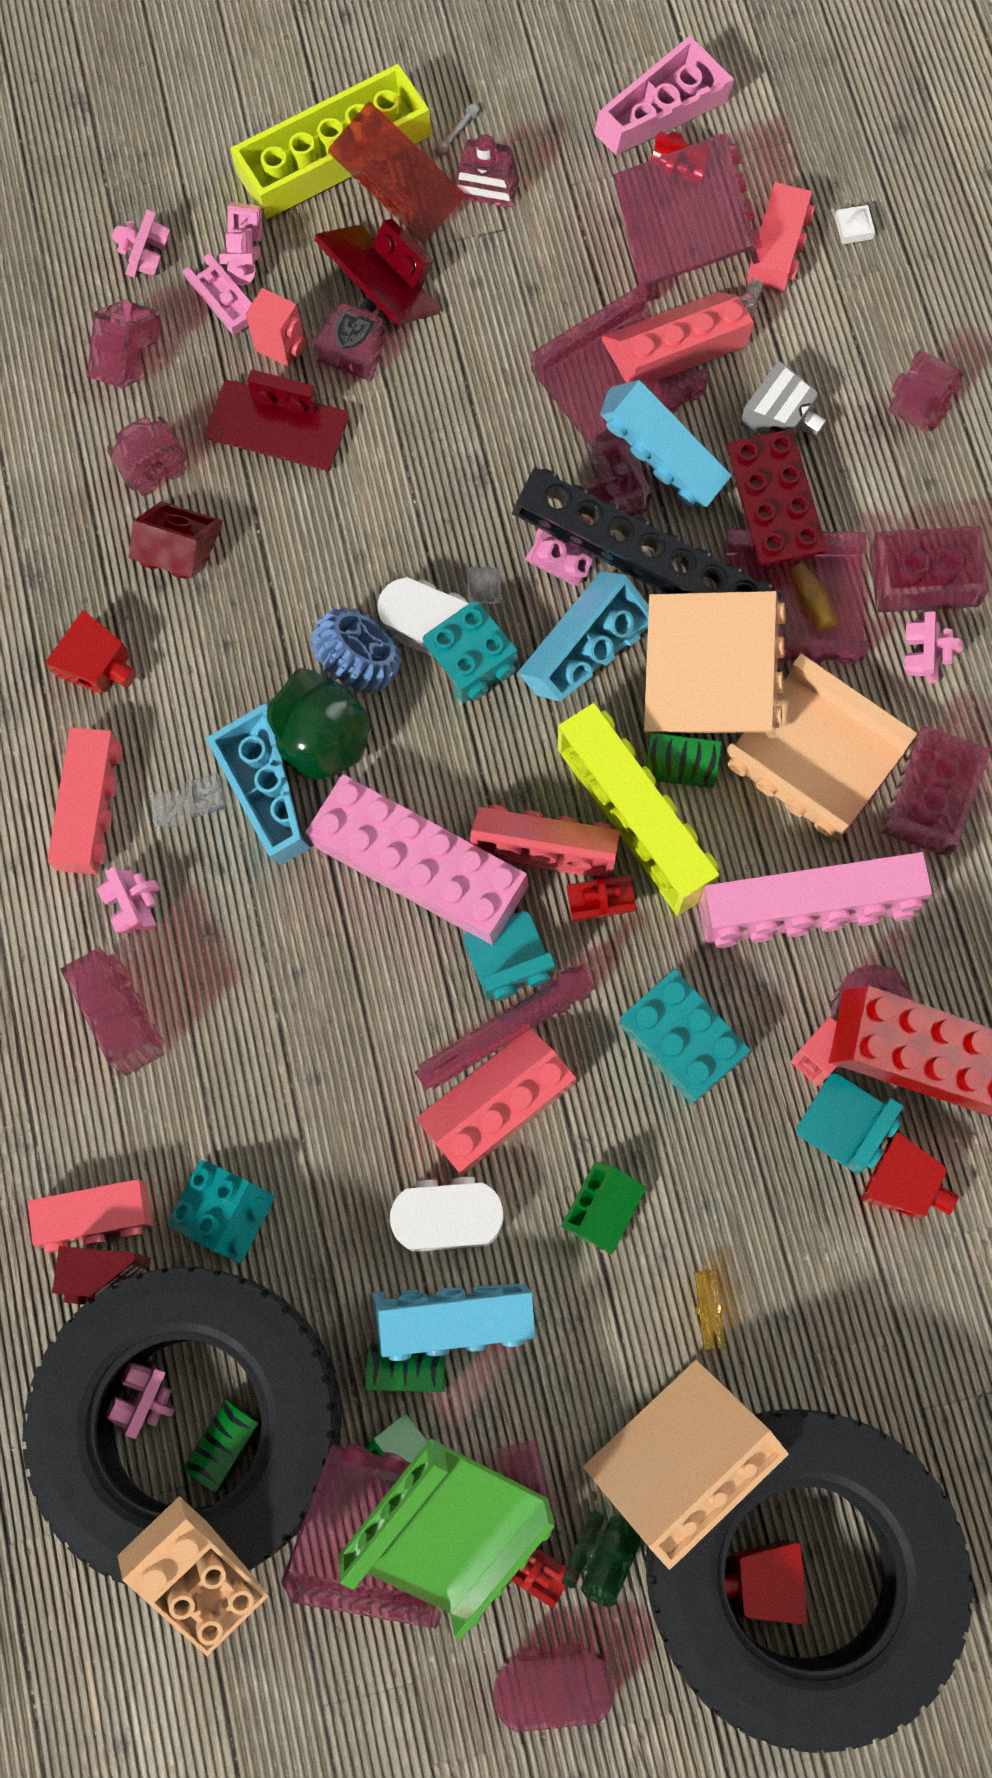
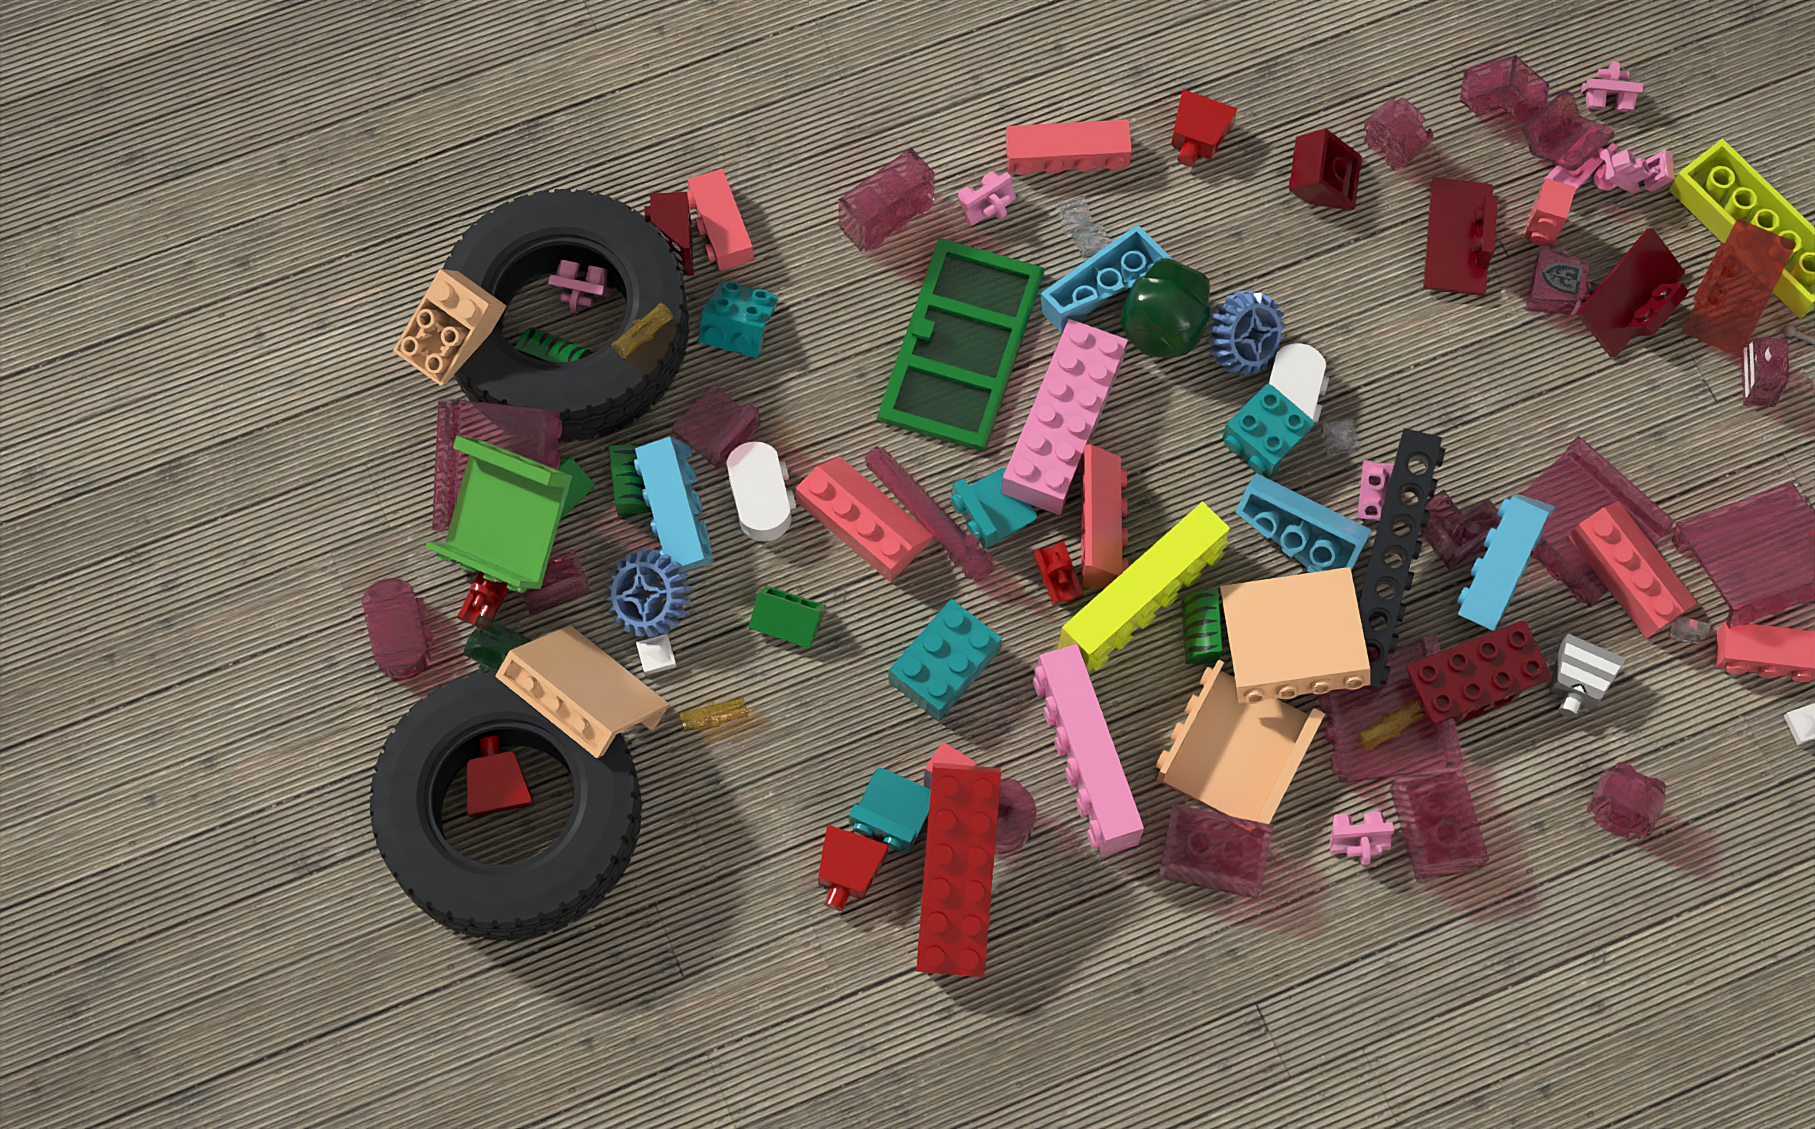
camera: 75 degrees right, 5 degrees down
(191, 293) = (1563, 135): none -> clear pink bracket
(231, 1301) = (655, 319): none -> clear yellow pin
(302, 960) = (961, 345): none -> door
(354, 1257) = (717, 425): none -> clear pink bracket
(551, 1355) = (651, 621): none -> medium blue gear
(626, 1368) = (656, 654): none -> white tile

